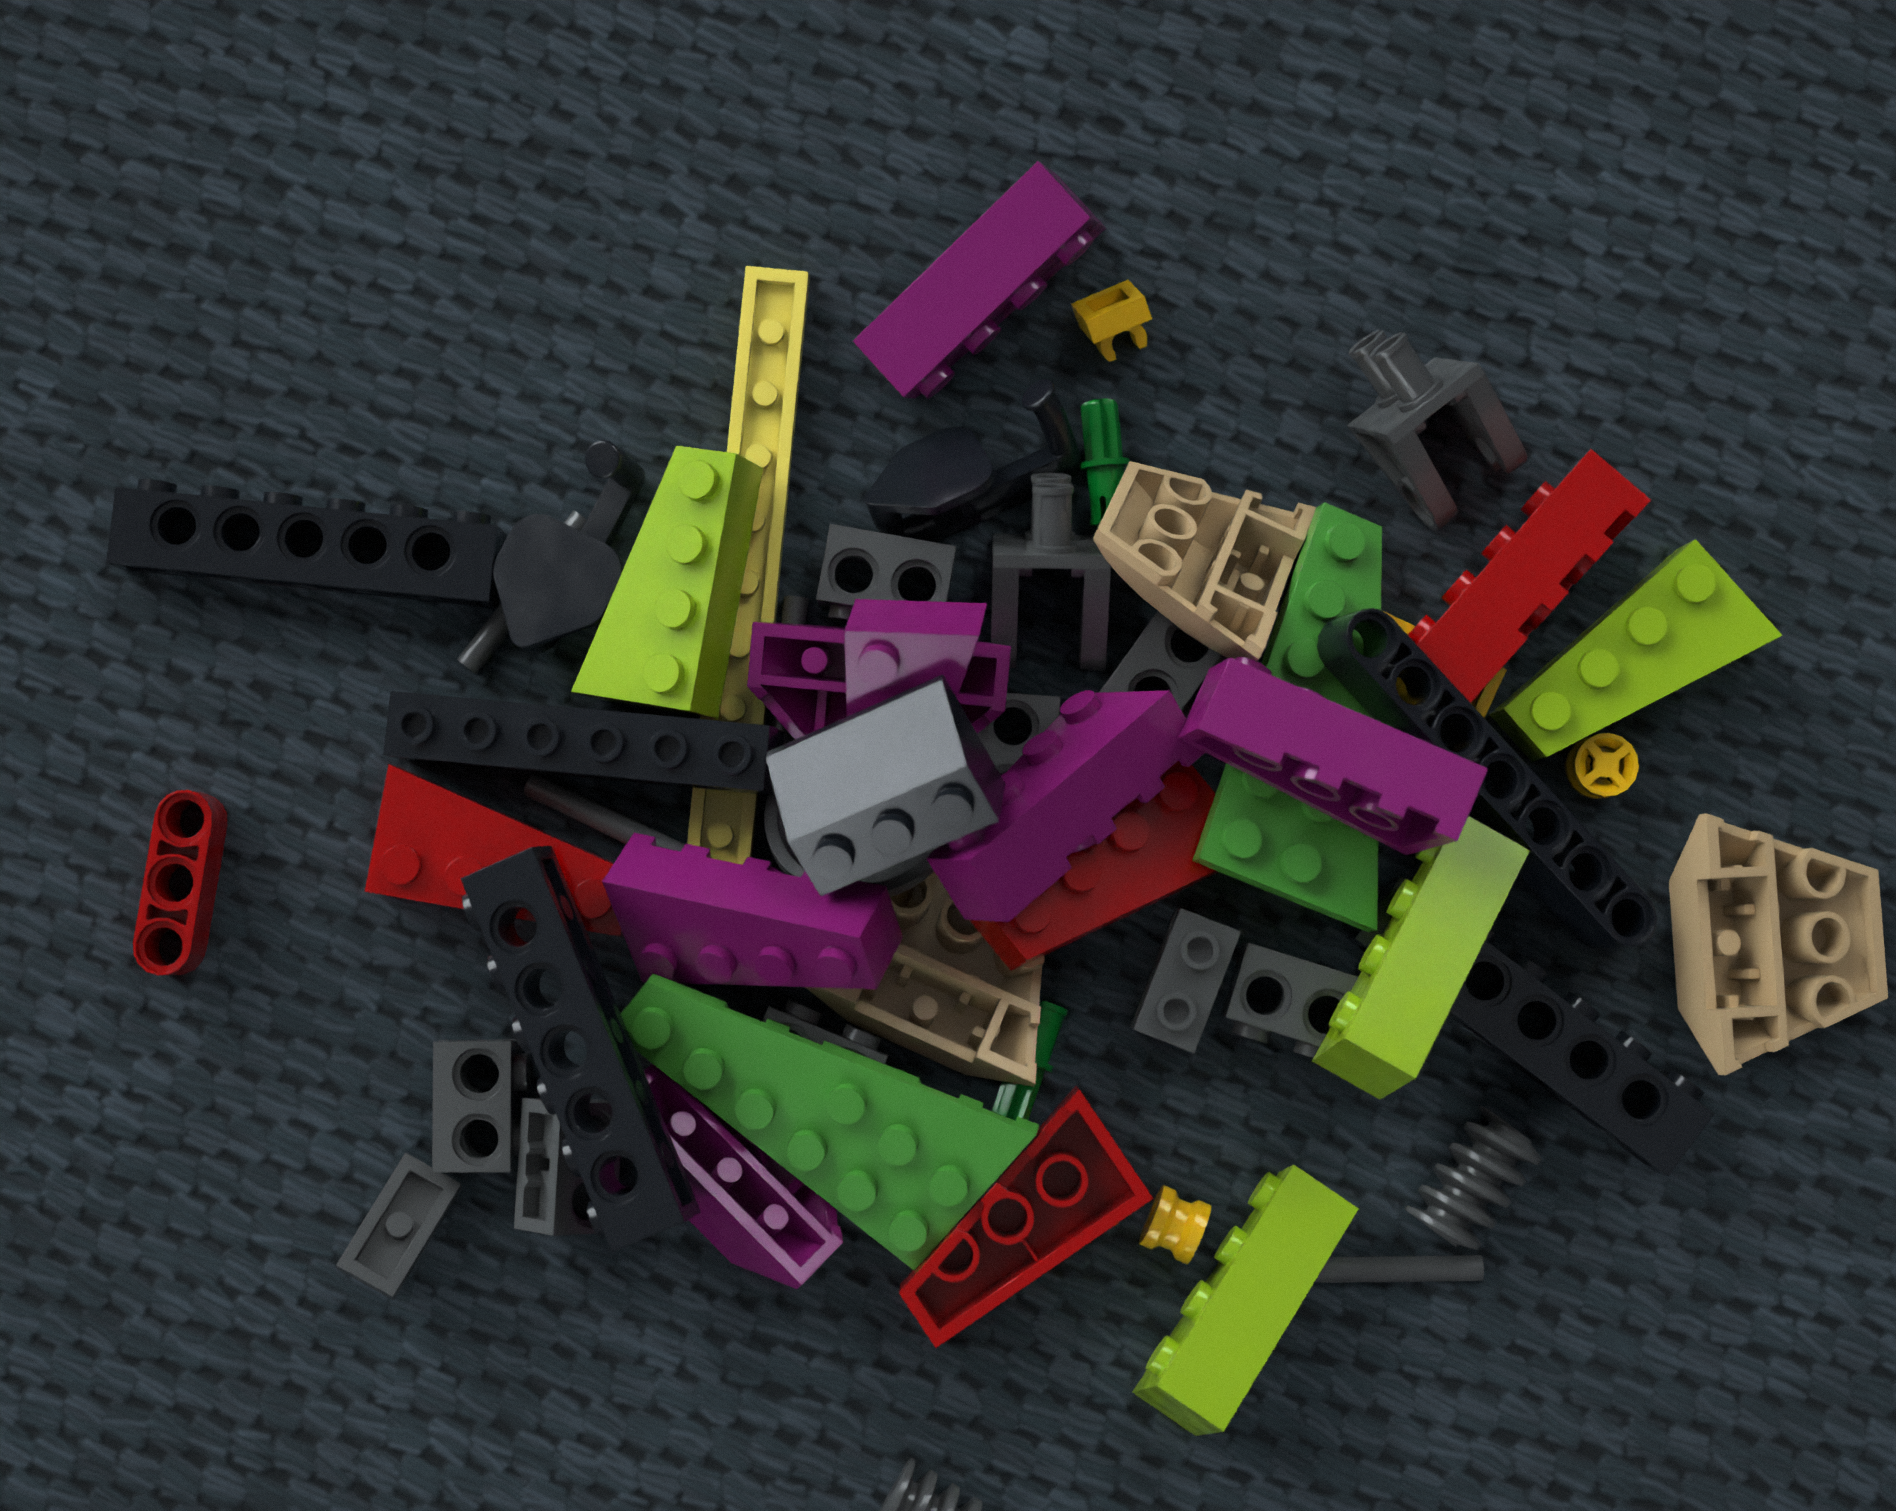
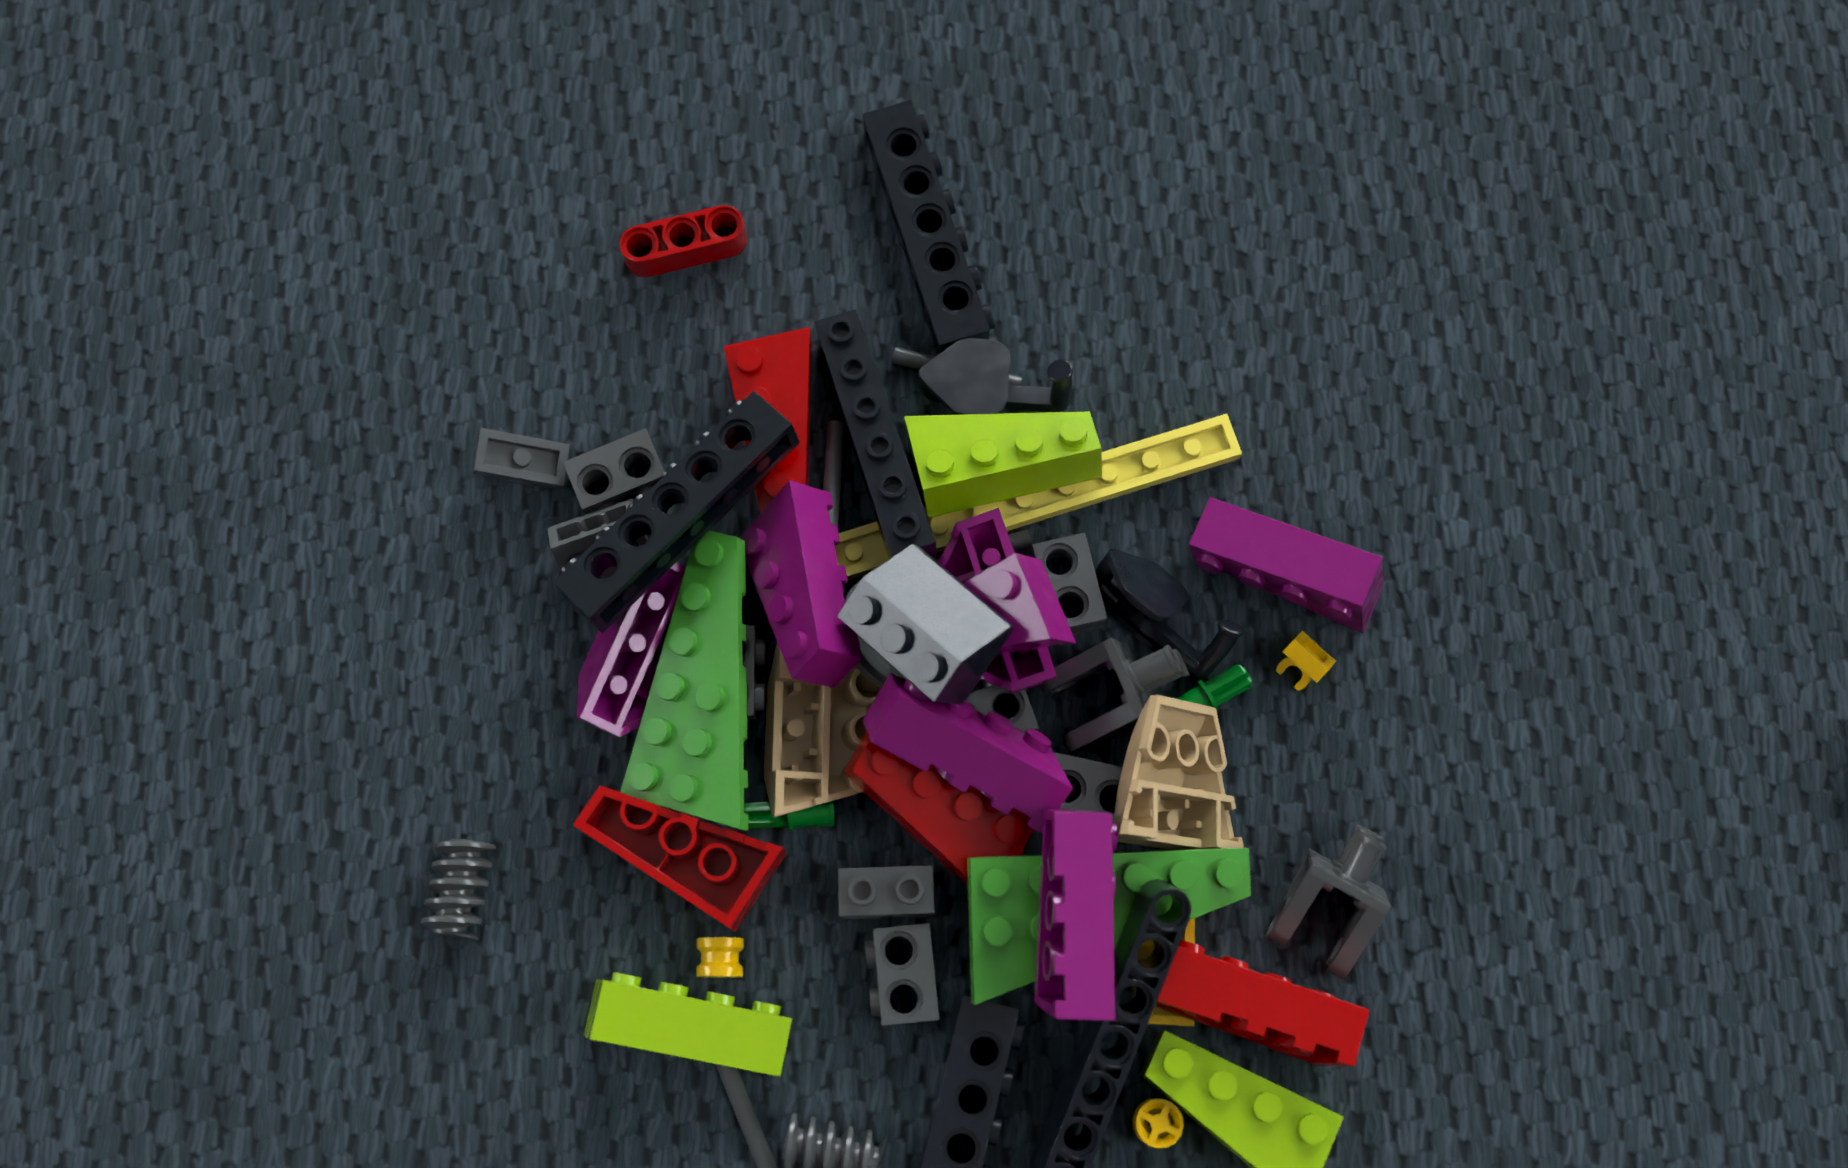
camera: 65 degrees right, 10 degrees down
(1420, 960) = (970, 1040): lime wedge -> none

